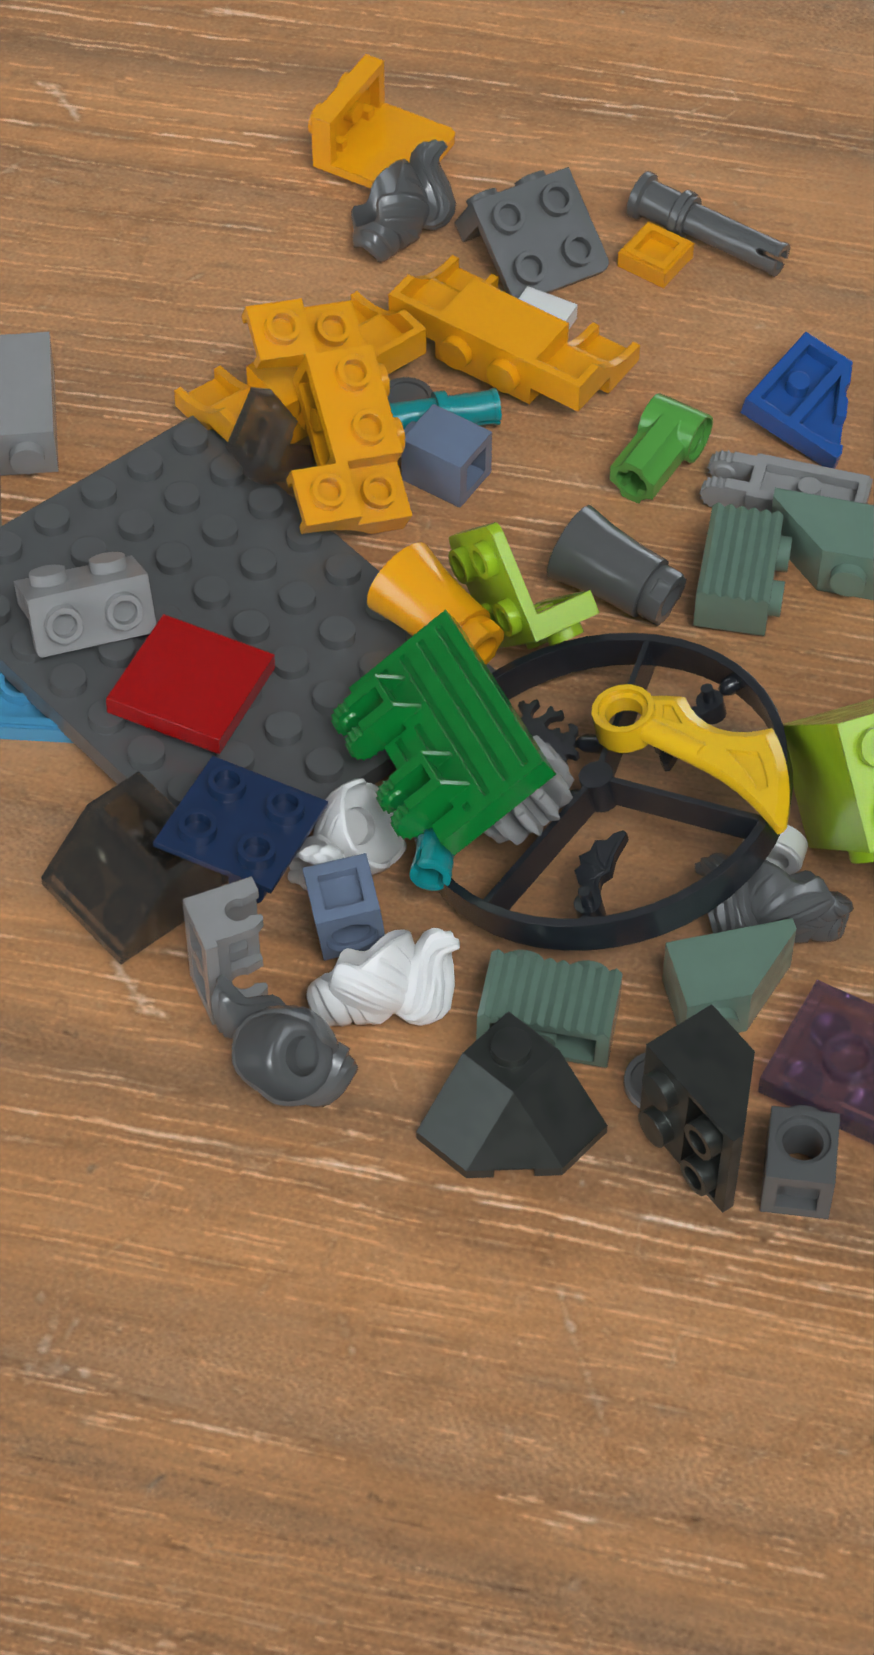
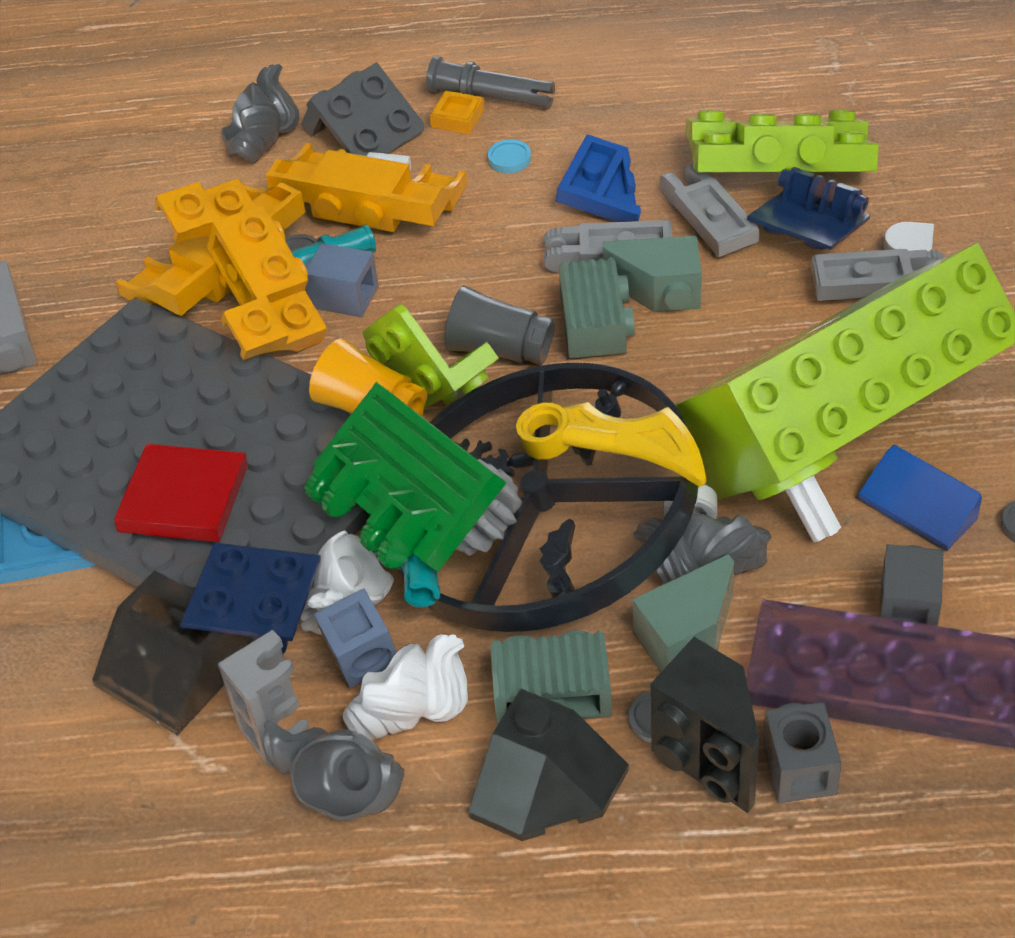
camera: 10 degrees left, 5 degrees down
(86, 603) = (80, 452): light grey bracket -> none
(264, 437) = (194, 295): clear smoke bracket -> none
(363, 135) = (209, 78): light orange bracket -> none
(664, 439) = (505, 231): bright green piece -> none
(703, 333) = (509, 156): none -> medium azure piece

